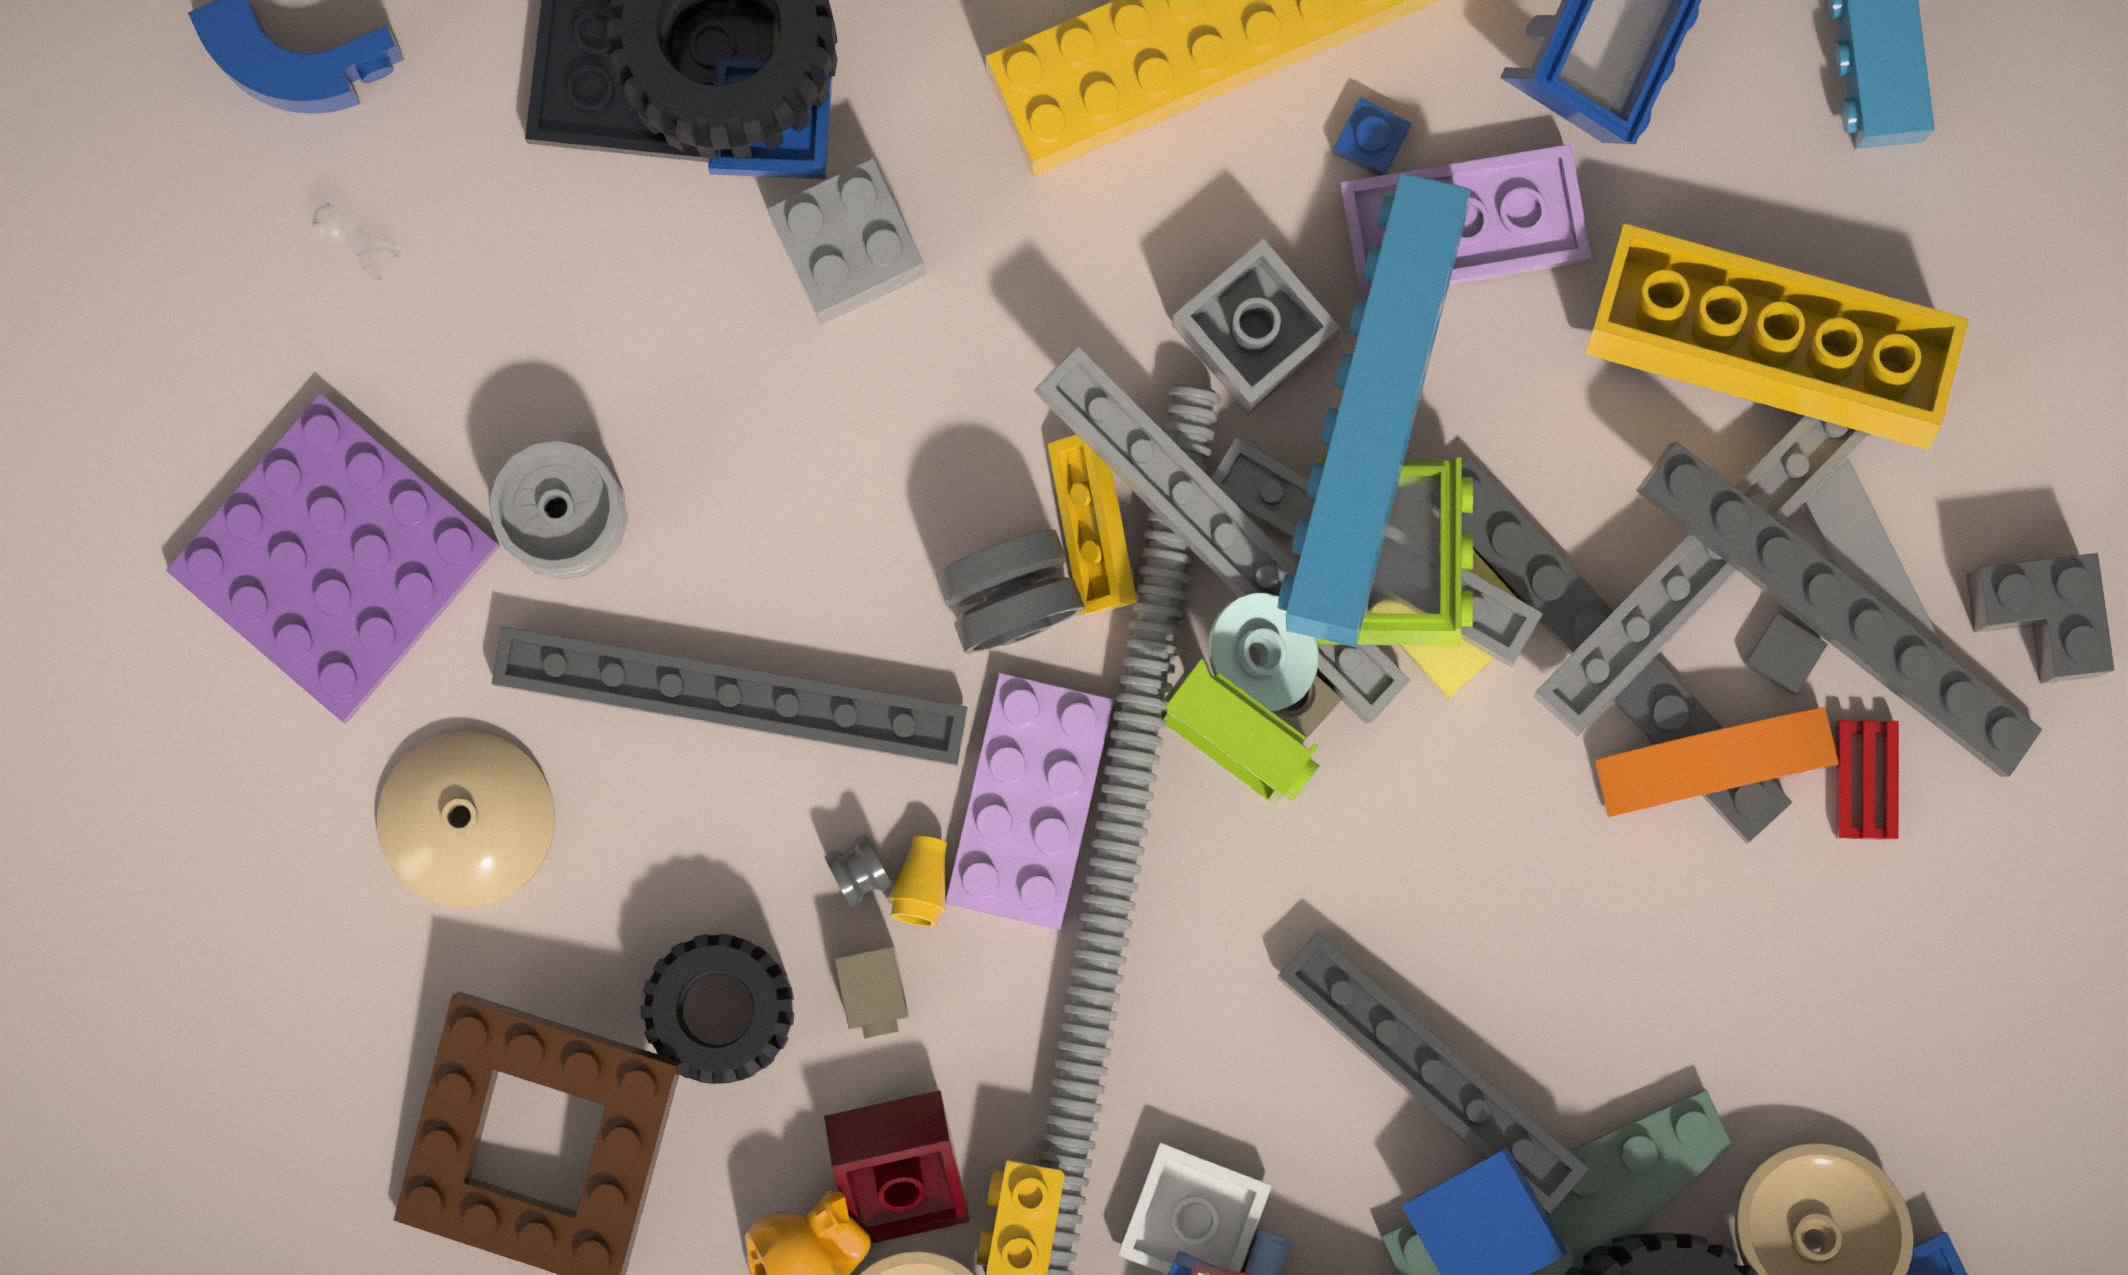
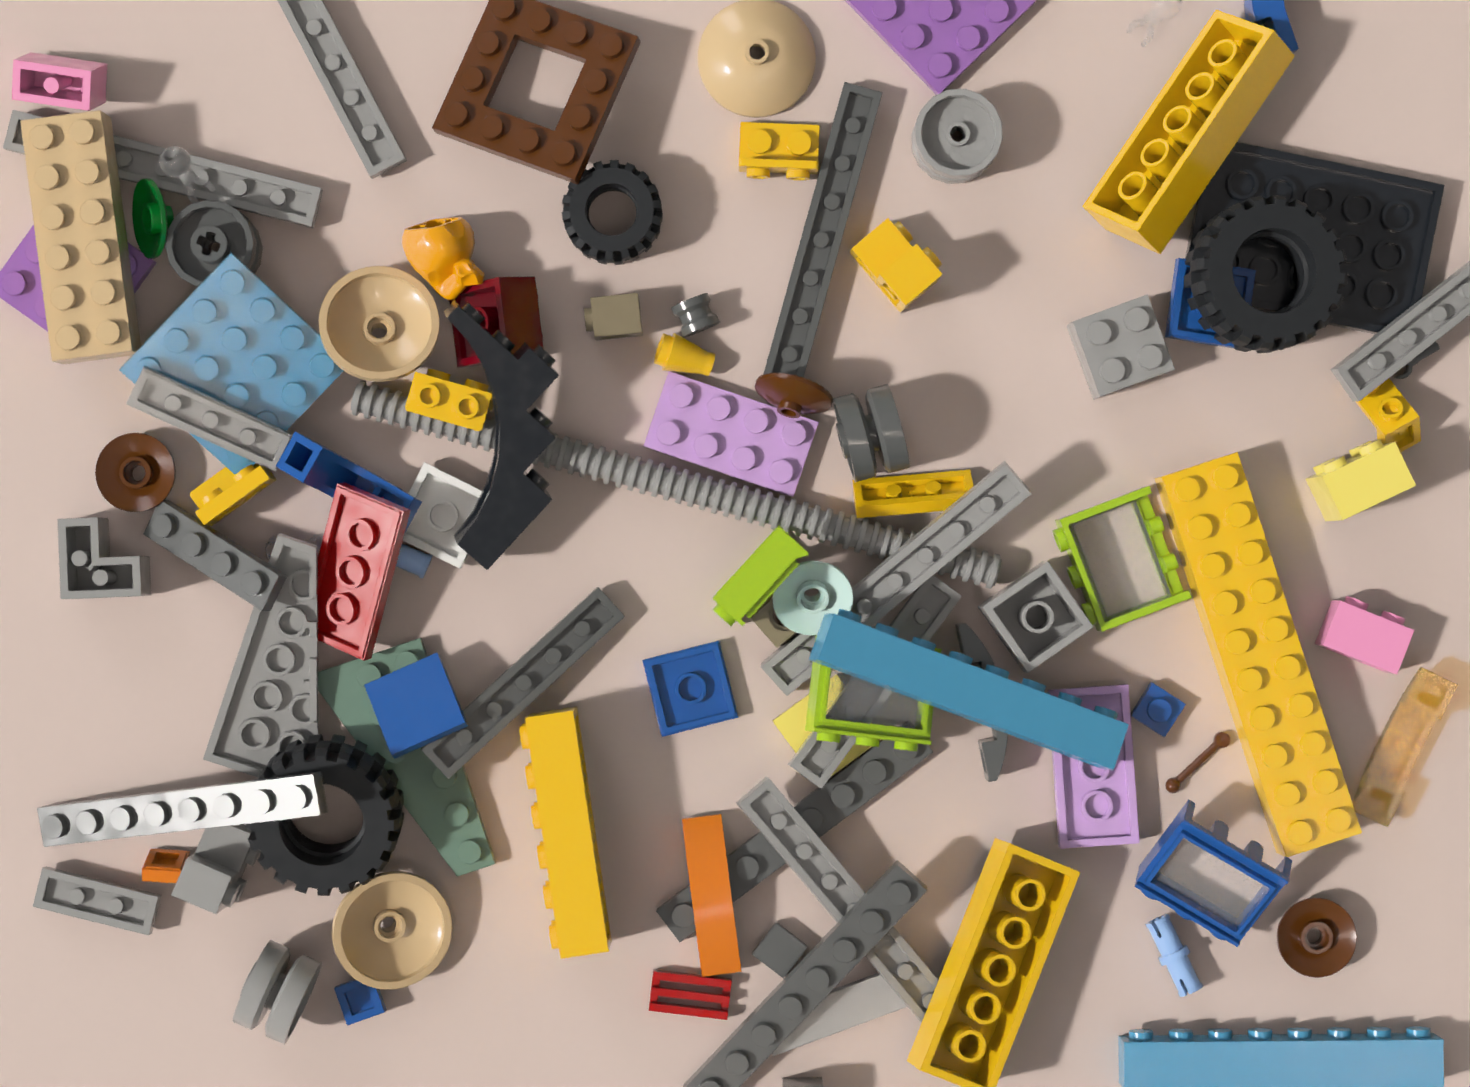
camera: 95 degrees right, 5 degrees up
(521, 171) = (1189, 130): none -> yellow brick
(599, 772) = (779, 149): none -> yellow bracket
(758, 581) = (895, 265): none -> yellow brick
(964, 712) = (793, 394): none -> reddish brown dish
(1156, 1118) = (510, 494): none -> black arch
(1159, 212) = (1120, 560): none -> clear window
(1406, 43) = (1220, 740): none -> reddish brown hinge
(1413, 824) = (690, 688): none -> blue tile
(1455, 369) = (991, 749): none -> dark grey slope
(1649, 981) = (568, 832): none -> yellow brick
(1728, 78) = (1174, 955): none -> light blue pin

